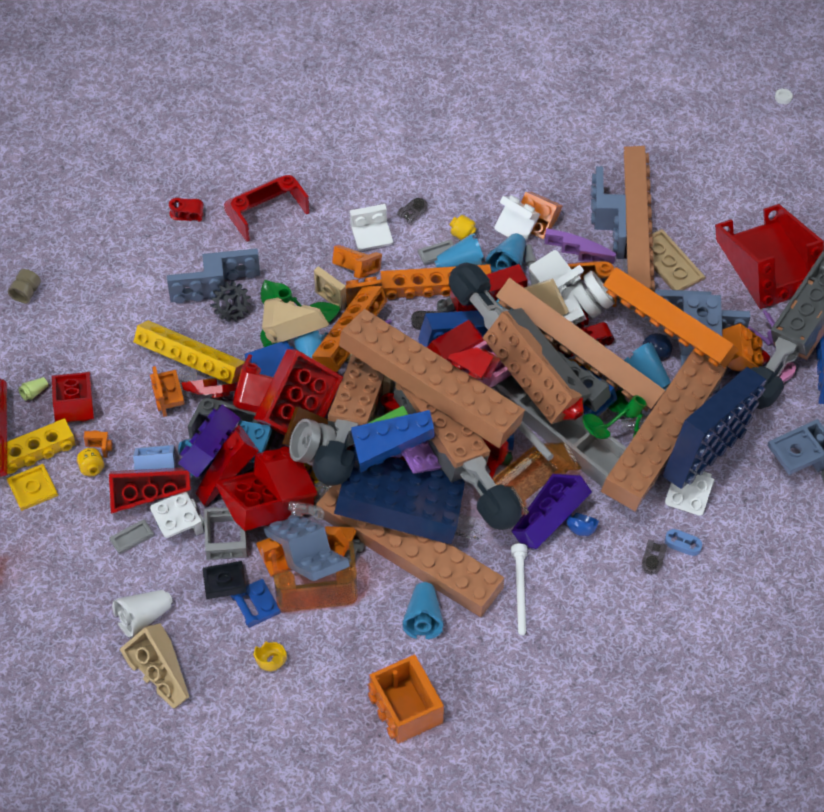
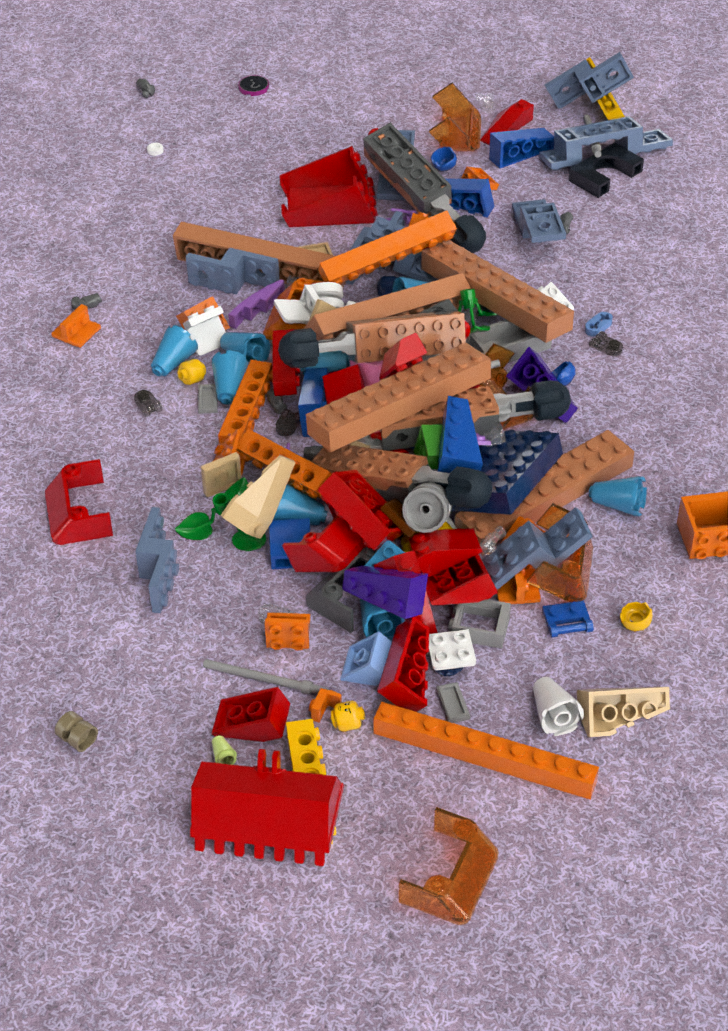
camera: 70 degrees left, 10 degrees down
(32, 487) = (358, 776): yellow tile -> none
(78, 572) = (486, 750): none -> orange brick
(117, 424) = (306, 687): none -> light grey bar
(187, 209) = (46, 571): red piece -> none
(188, 351) = (242, 603): yellow brick -> none
(208, 386) = (300, 593): red plate -> none
(224, 580) = (536, 633): black tile -> none
(234, 295) = (196, 554): black gear -> none
(358, 262) = (193, 452): orange bracket -> none
(370, 227) = (155, 437): white bracket -> none
(439, 477) = (495, 434): none -> clear slope
(479, 204) = (173, 350): none -> dark azure cone
(486, 127) = (76, 328): none -> orange bracket
(519, 552) = (577, 423): white piece -> none
(524, 120) = (90, 301): none -> dark grey arm
(714, 428) = (518, 247): dark blue brick -> none

